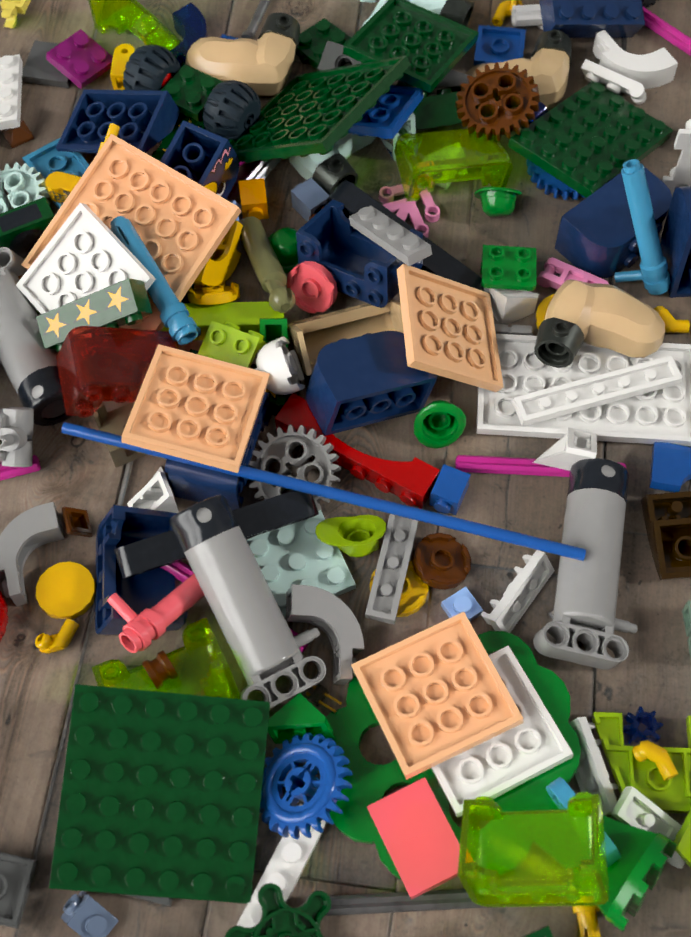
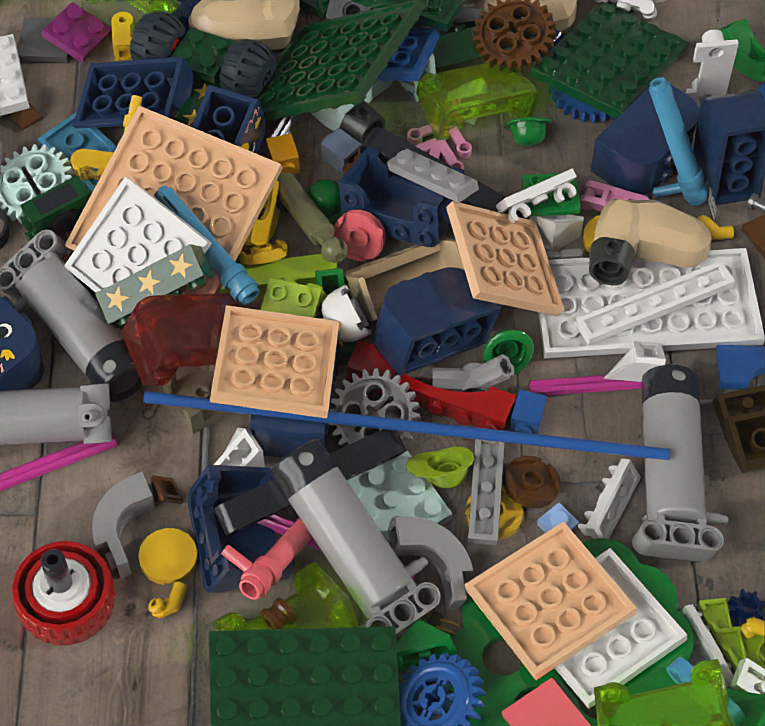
camera: 10 degrees left, 5 degrees down
(399, 445) = (473, 376): none -> light grey piece
(493, 266) = (538, 194): none -> white plate
(671, 296) = (711, 204): none -> sticker

